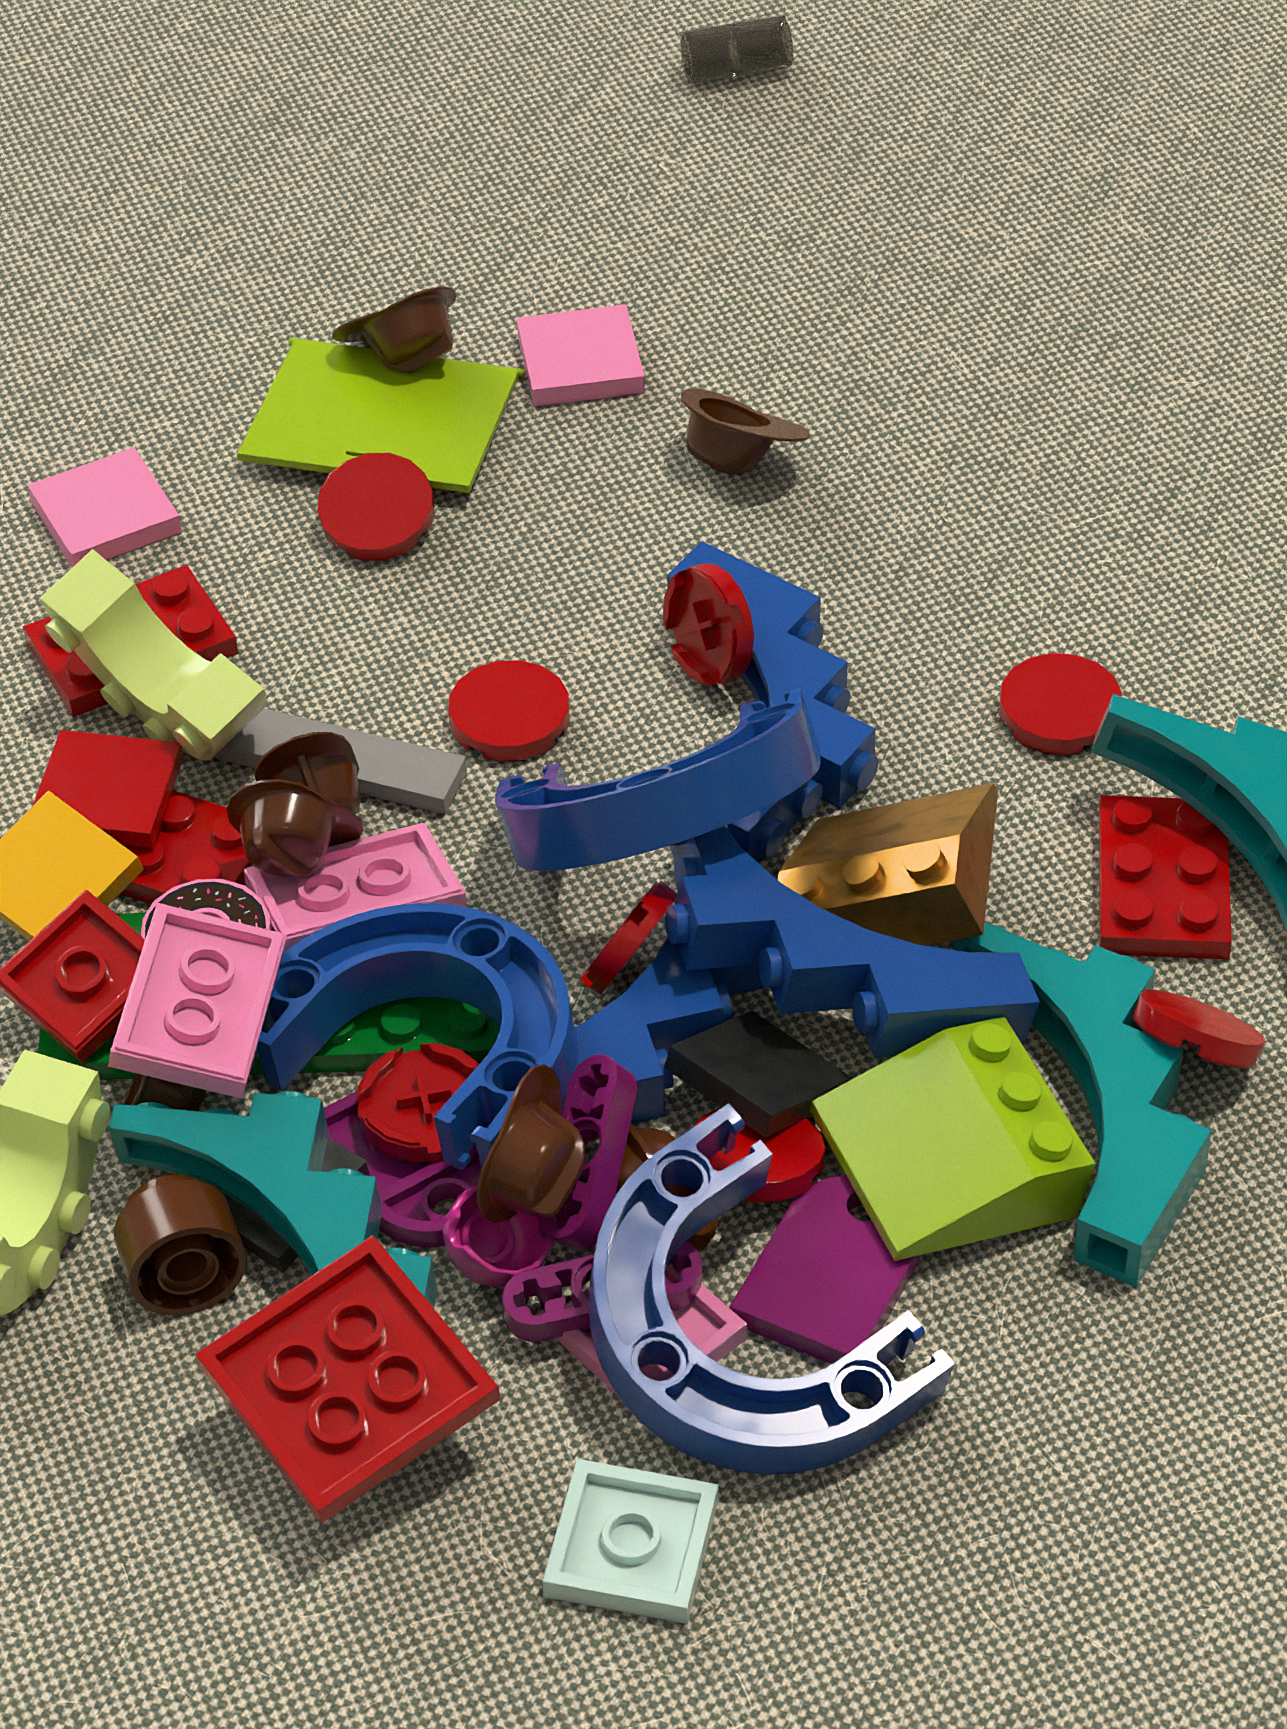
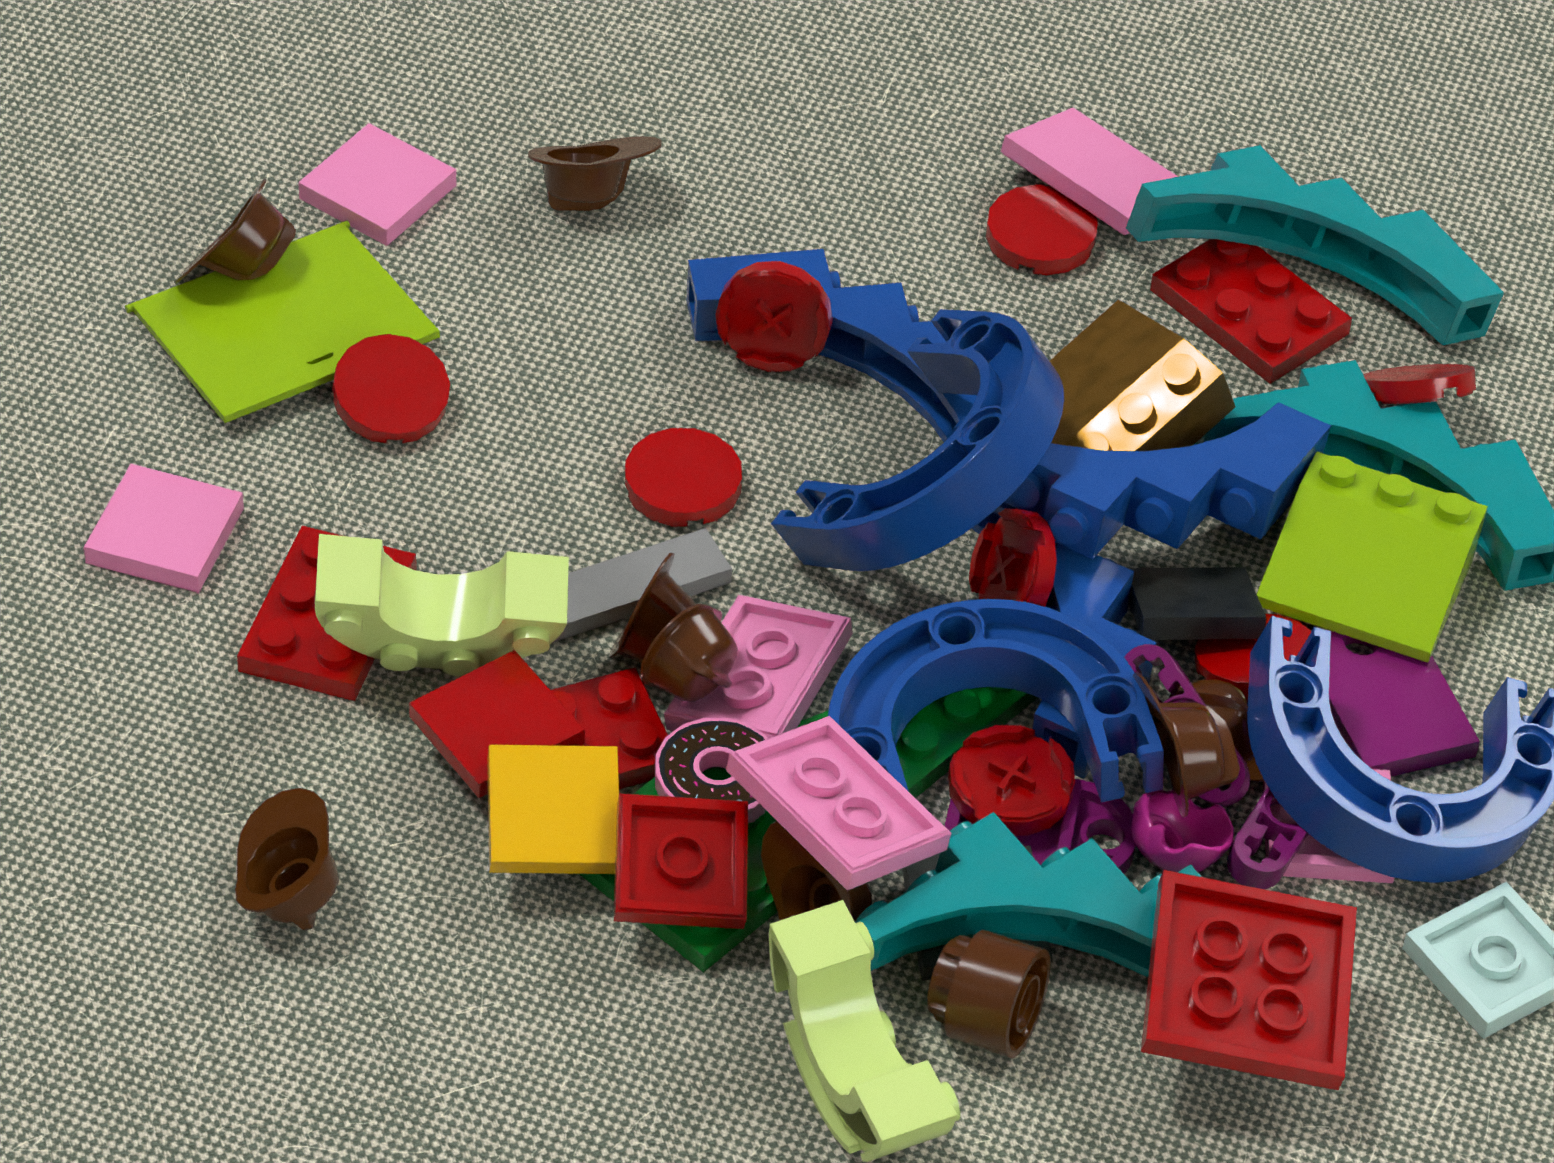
camera: 50 degrees left, 0 degrees up
(1166, 662) = (1085, 164): none -> bright pink tile

